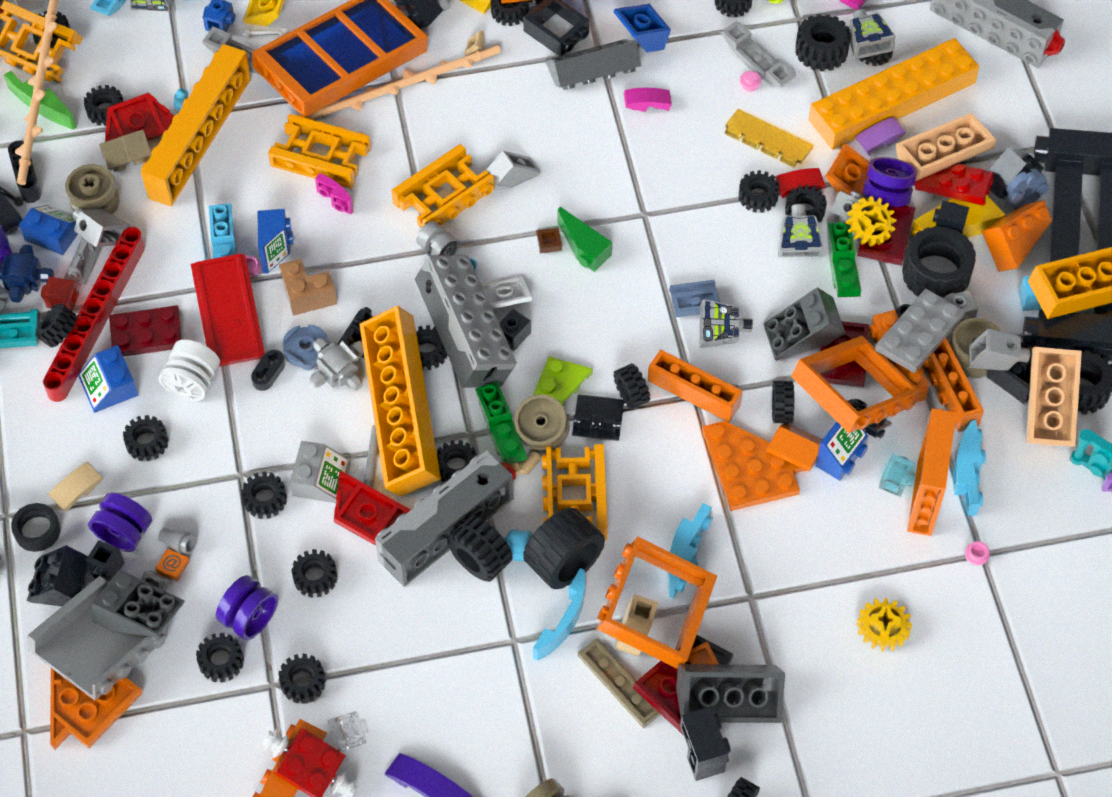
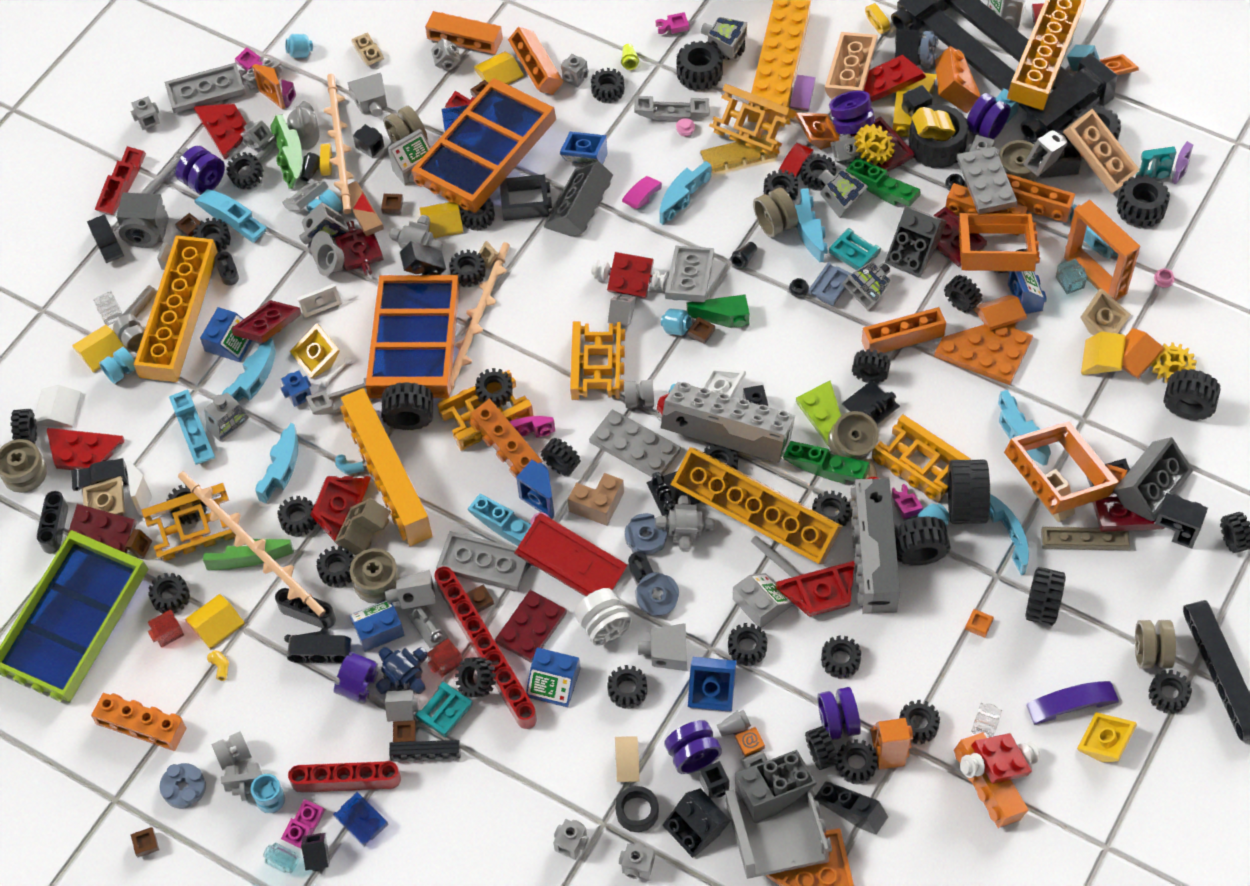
camera: 45 degrees left, 0 degrees up
(78, 154) = (331, 557): none -> black tyre
(139, 278) = (480, 598): none -> reddish brown plate
(149, 58) = (284, 459): none -> medium azure slope
(171, 685) = (852, 806): none -> black slope
(172, 252) = (483, 560): none -> light grey plate
(201, 495) = (711, 683): none -> blue slope
(202, 619) = (821, 747): none -> black tyre
(208, 439) = (667, 647): none -> light grey torso
(245, 383) = (651, 605): none -> sand blue plate
(251, 665) = (891, 742): none -> orange wedge
(265, 95) = (407, 406): none -> black tyre
(297, 179) = (502, 437): none -> orange brick
(319, 231) = (560, 456): none -> black tyre
(333, 127) = (490, 377): none -> black tyre
(389, 274) = (634, 444): none -> light grey plate
(447, 30) = (468, 259): none -> black tyre
(449, 658) = (979, 623): none -> orange tile
(512, 686) = (1045, 596): none -> black tyre
(519, 515) = (906, 504): none -> dark pink plate
(538, 215) = (676, 321): none -> medium azure head
(553, 151) = (630, 274): none -> red plate
(593, 188) = (689, 273): none -> light grey plate
(658, 215) = (743, 255): none -> black cone
(666, 273) = (798, 283): none -> black plate
(671, 123) = (678, 194): none -> medium azure slope
(720, 202) = (775, 212): none -> dark tan wheel
(737, 238) = (810, 227): none -> medium azure slope
(743, 290) = (851, 253): none -> teal plate
(793, 102) = (757, 105): none -> light orange fence
(835, 559) = (1103, 353): none -> yellow slope
(854, 659) = (1192, 394): none -> black tyre
(861, 585) = (1140, 352): none -> orange slope
(879, 532) = (1104, 314): none -> tan slope
(934, 245) = (933, 124): none -> yellow brick
(999, 286) = (988, 116): none -> dark purple wheel
(1024, 131) = (877, 18): none -> yellow beam
(1046, 458) = (1143, 189): none -> black tyre

